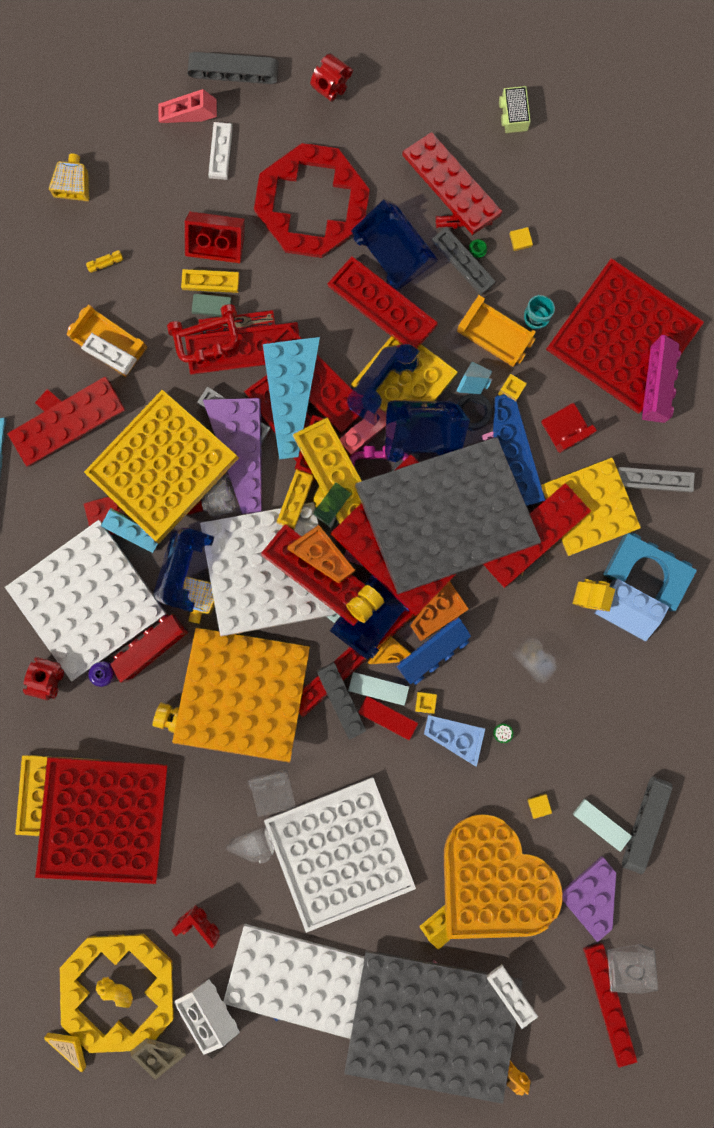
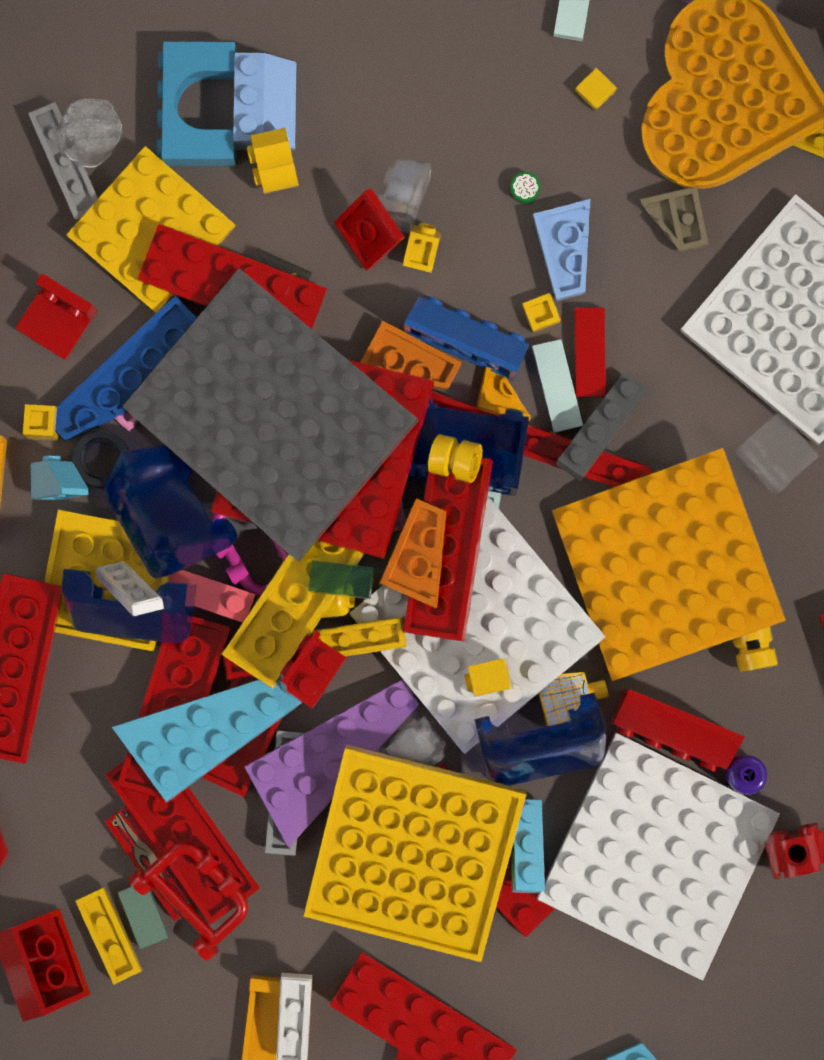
camera: 115 degrees left, 0 degrees up
(232, 557) = (488, 678): none -> yellow brick
(290, 461) = (312, 670): none -> red bracket
(389, 382) = (129, 588): none -> white tile
(438, 812) = (679, 218): none -> dark tan wing
(499, 654) = (422, 247): none -> yellow bracket
(525, 629) = (369, 229): none -> red tile
(665, 500) = (89, 132): none -> clear brick

